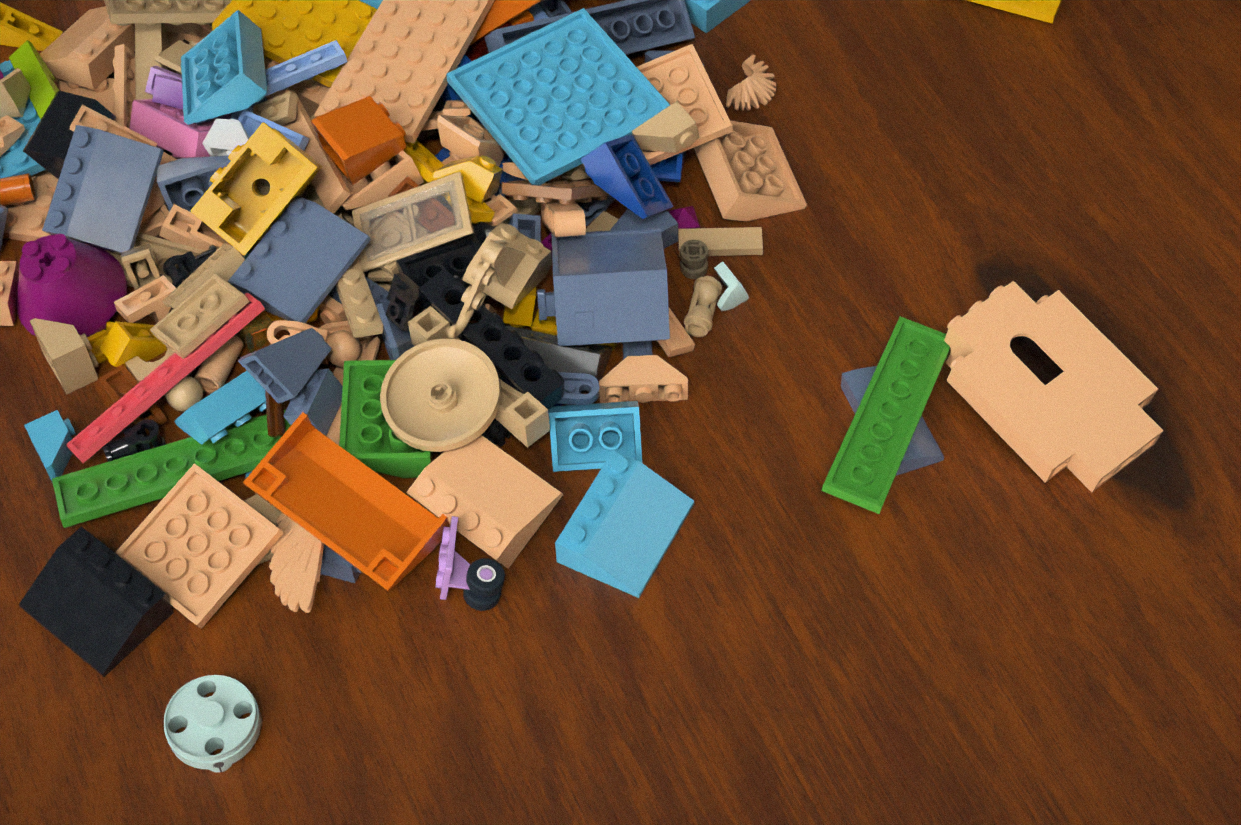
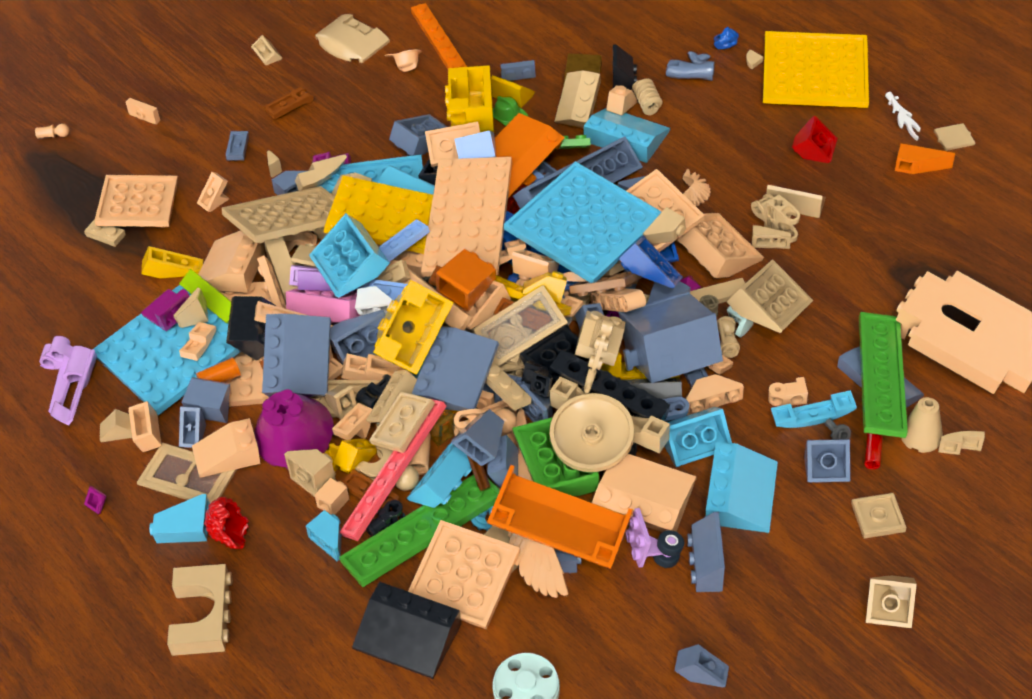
camera: 15 degrees left, 5 degrees down
(80, 394) = (332, 496): none -> light nougat brick
(457, 762) = (701, 666): none -> sand blue slope
(532, 607) = (707, 554): none -> sand blue slope
(751, 407) = (788, 393): none -> light nougat leg
(759, 741) = (891, 601): none -> tan slope
(760, 518) = (827, 460): none -> sand blue slope
(774, 446) = (814, 413): none -> medium azure slope
(780, 265) = (770, 298): none -> tan slope
(798, 483) = (838, 432): none -> dark grey plate
(800, 614) = (878, 515): none -> tan tile
(824, 179) = (763, 238): none -> tan slope
(833, 522) = (873, 451): none -> red piece
(845, 151) = (776, 214): none -> tan piece
(884, 134) = (804, 202): none -> tan slope
(916, 505) = (924, 426): none -> tan cone
(952, 56) = (815, 141): none -> red slope
(954, 537) = (955, 441): none -> tan slope
(1092, 116) = (919, 159): none -> orange slope
(1098, 46) = (904, 116): none -> white piece
(1159, 94) = (954, 137): none -> tan piece

